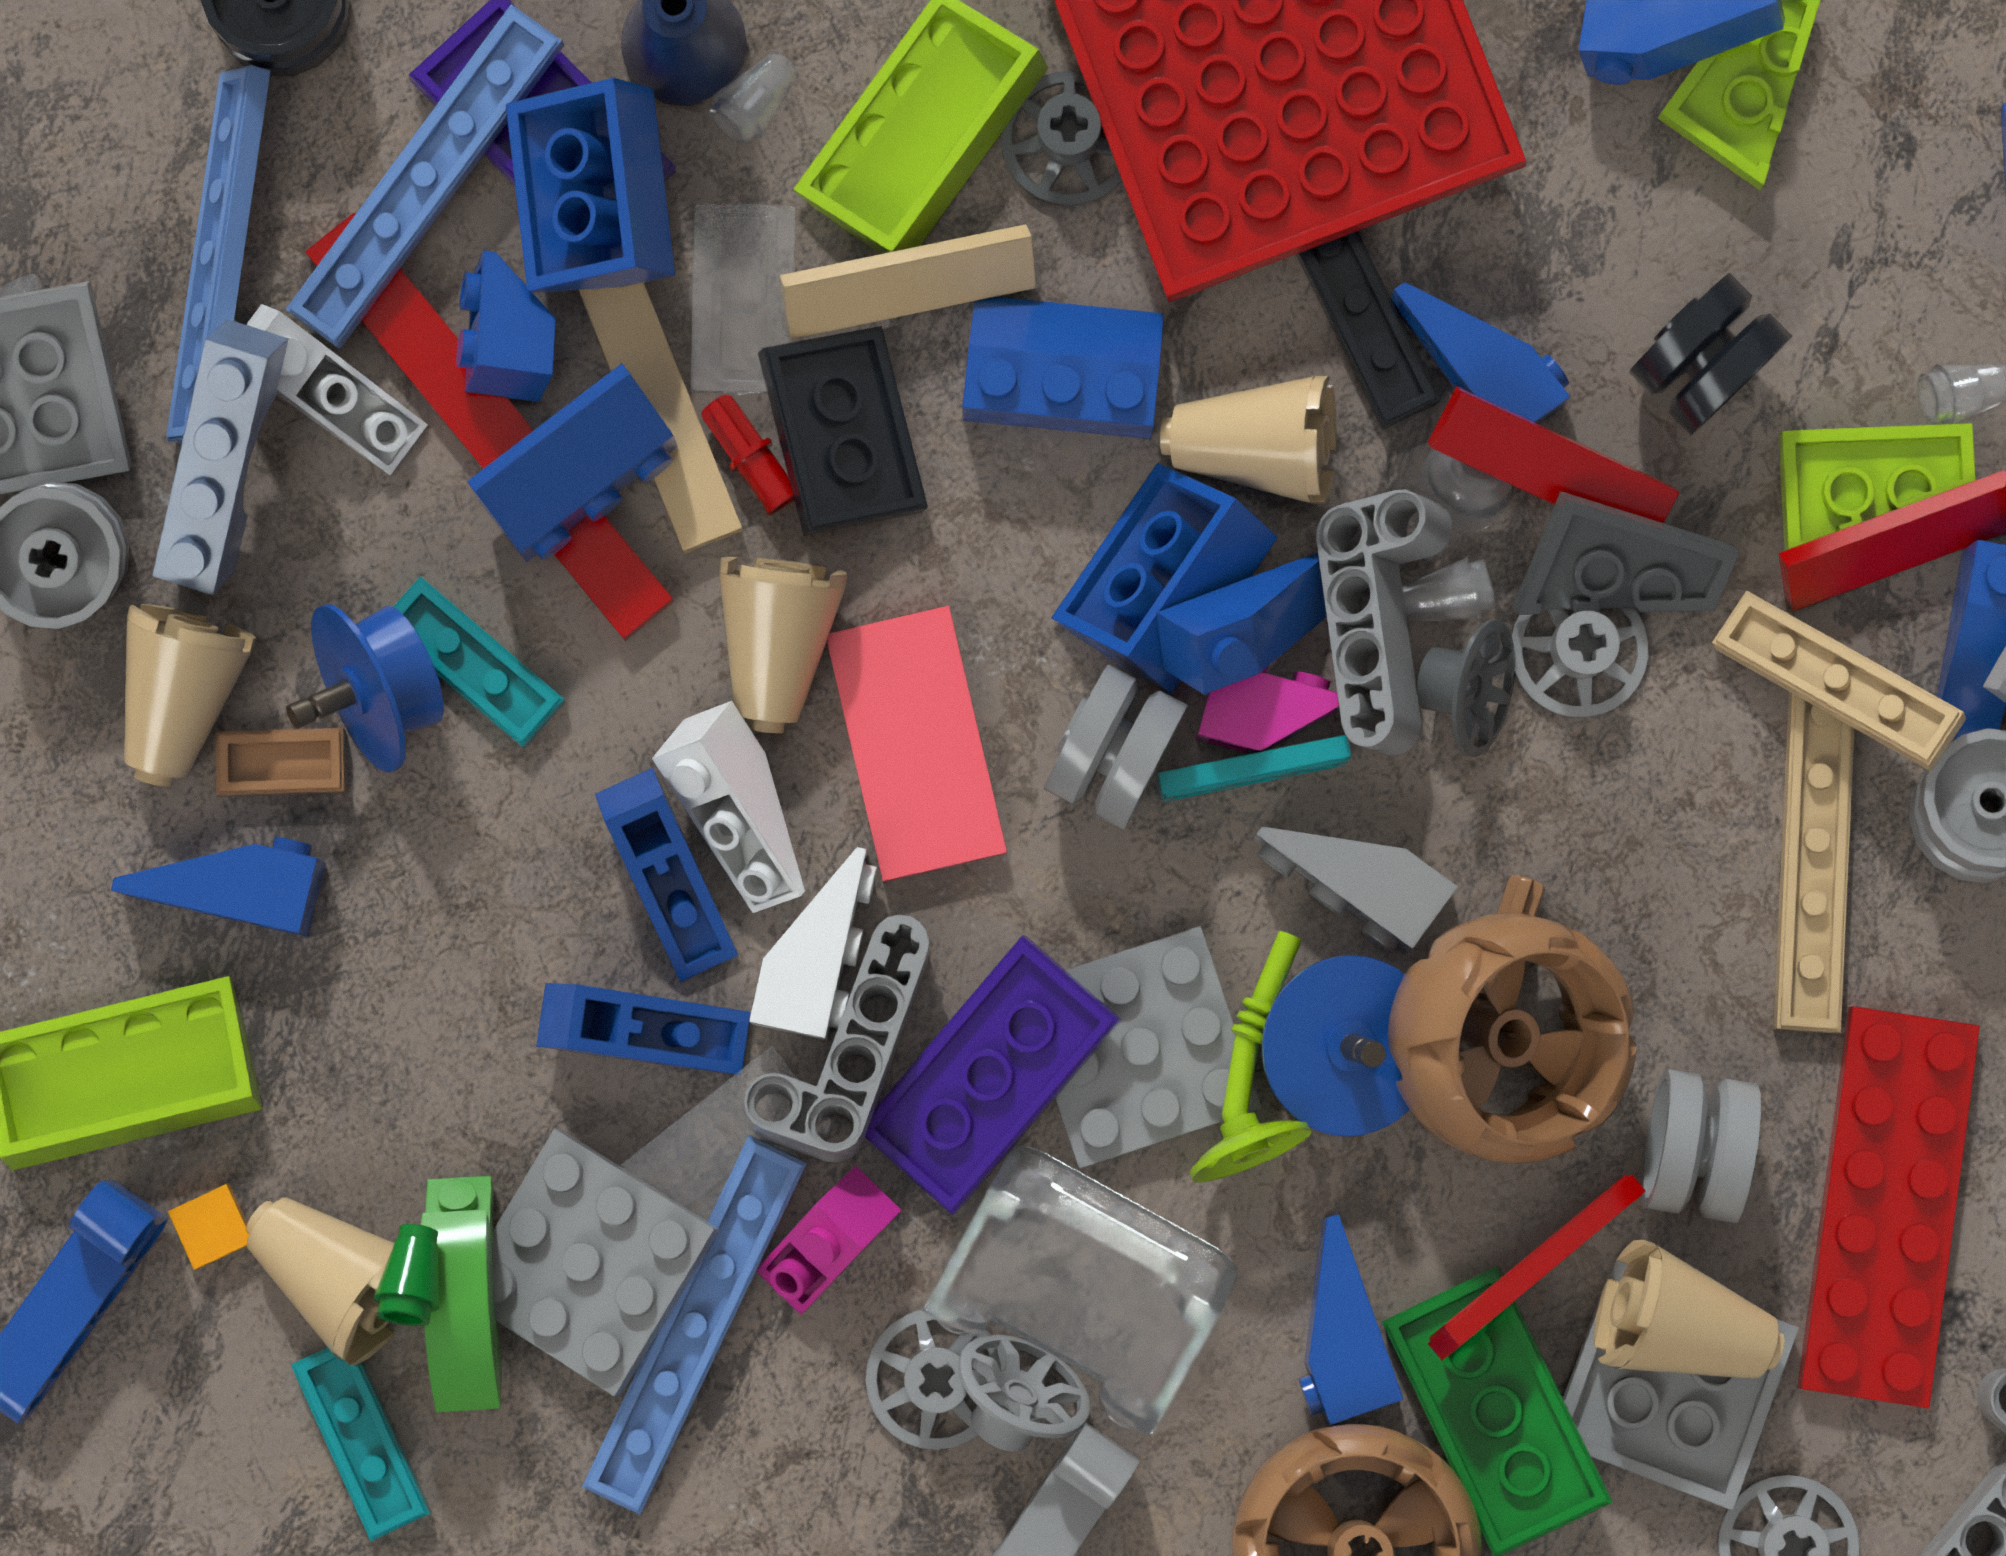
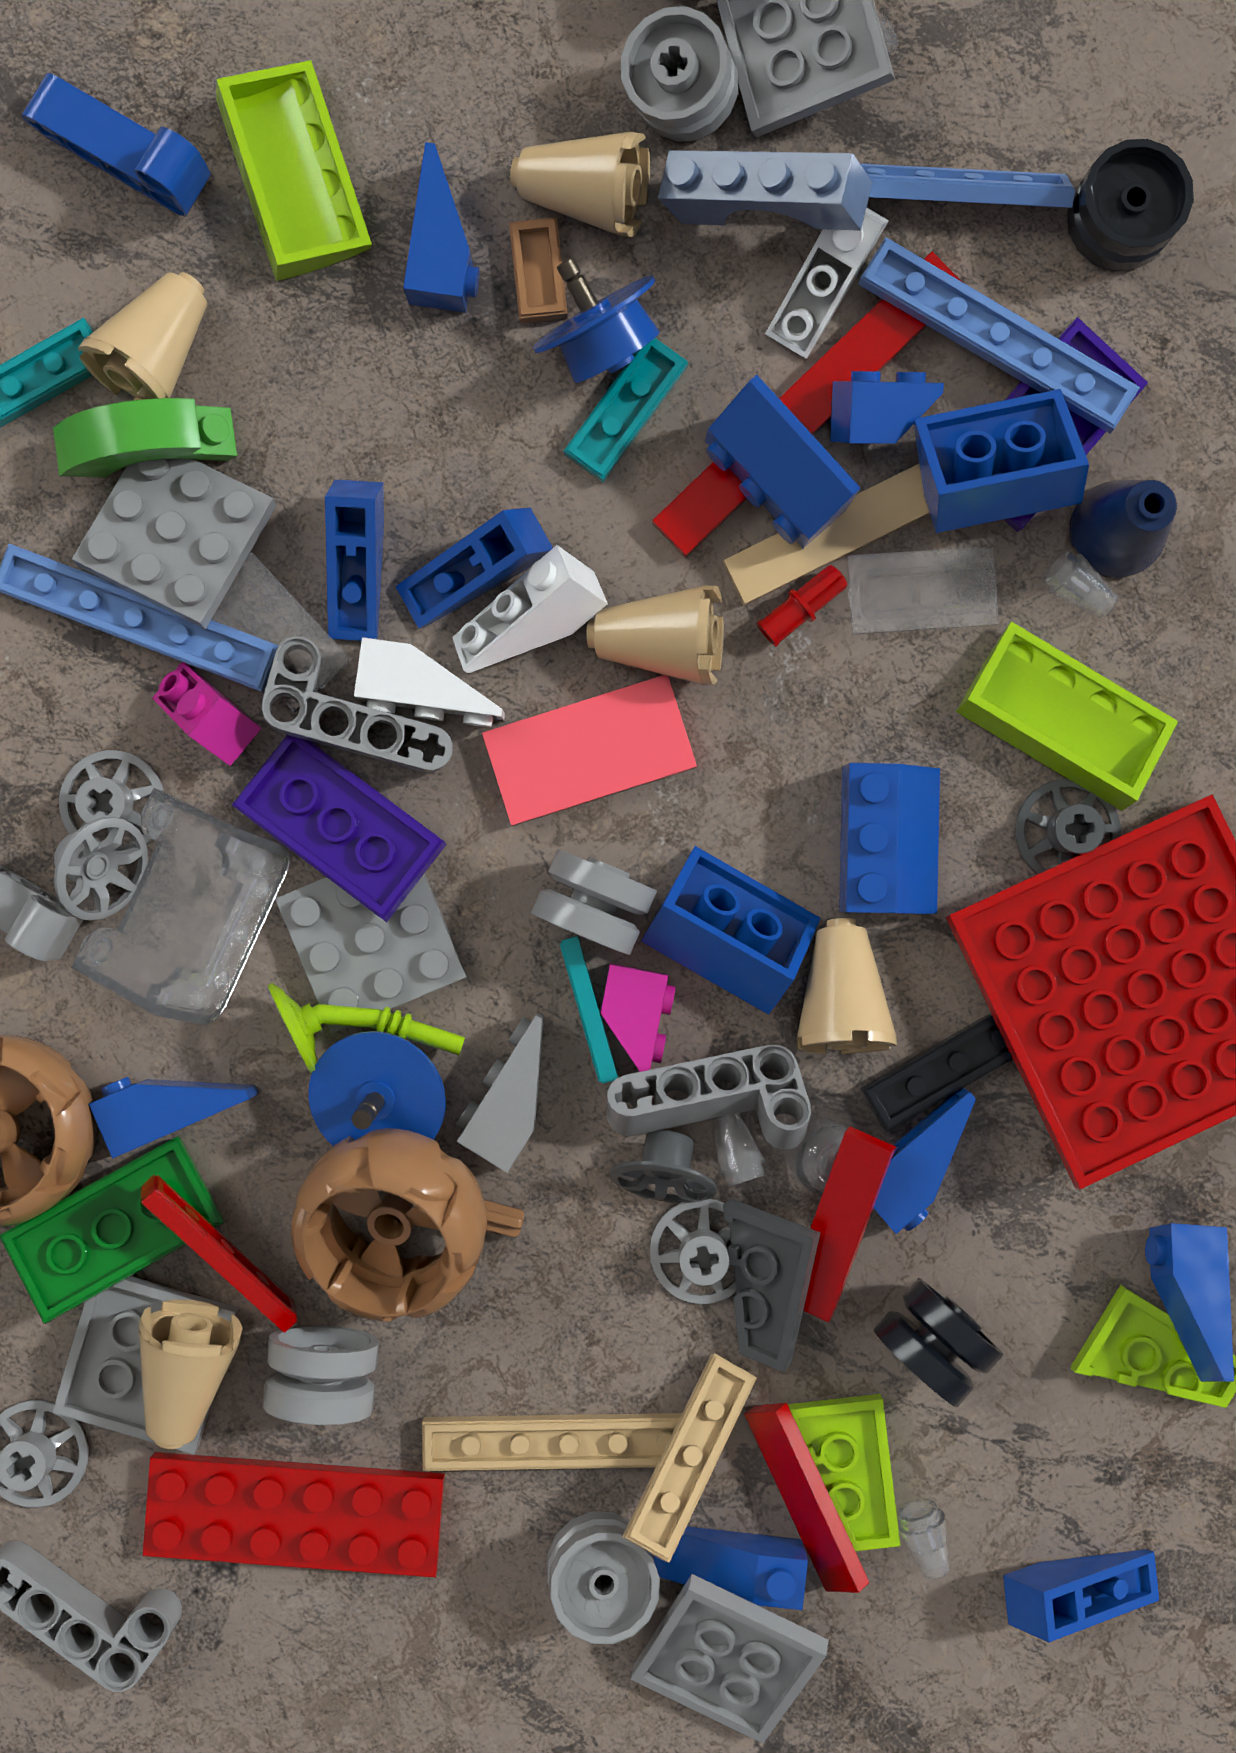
camera: 90 degrees right, 5 degrees up
(210, 1226) = (184, 248): light orange tile -> none
(410, 1278) = (135, 388): green cone -> none
(842, 430) = (826, 673): black tile -> none
(908, 281) = (945, 714): tan tile -> none
(1242, 625) = (694, 991): blue slope -> none

